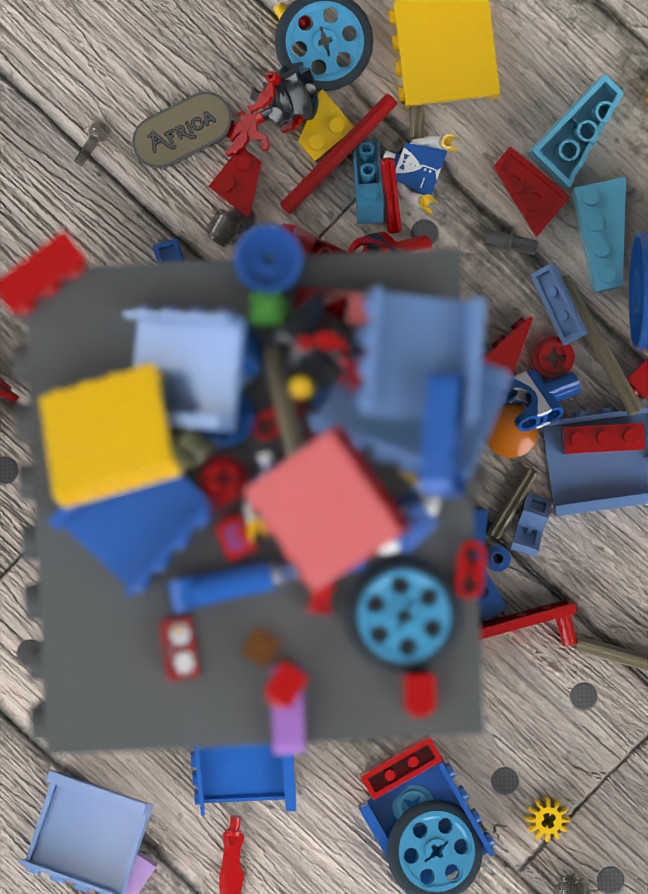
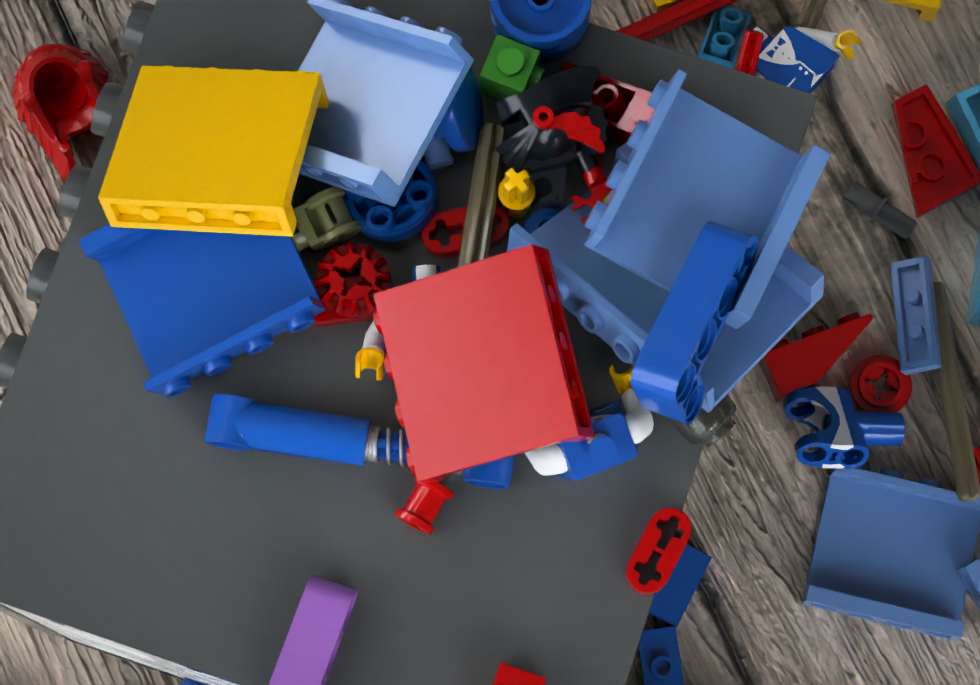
camera: 30 degrees right, 10 degrees down
(179, 648) = (189, 498): slope -> none
(234, 535) = (335, 368): red brick -> none
(260, 647) = (307, 544): clear orange plate -> none
(285, 685) = (319, 603): red brick -> none
(429, 648) = (488, 626): wedge -> none
(505, 555) = (693, 640): blue plate -> none
(506, 438) = (775, 467): orange dish -> none
(512, 503) = (749, 561): dark tan axle -> none
(531, 524) = (764, 601): medium blue slope -> none
(602, 438) = (909, 519): red brick -> none

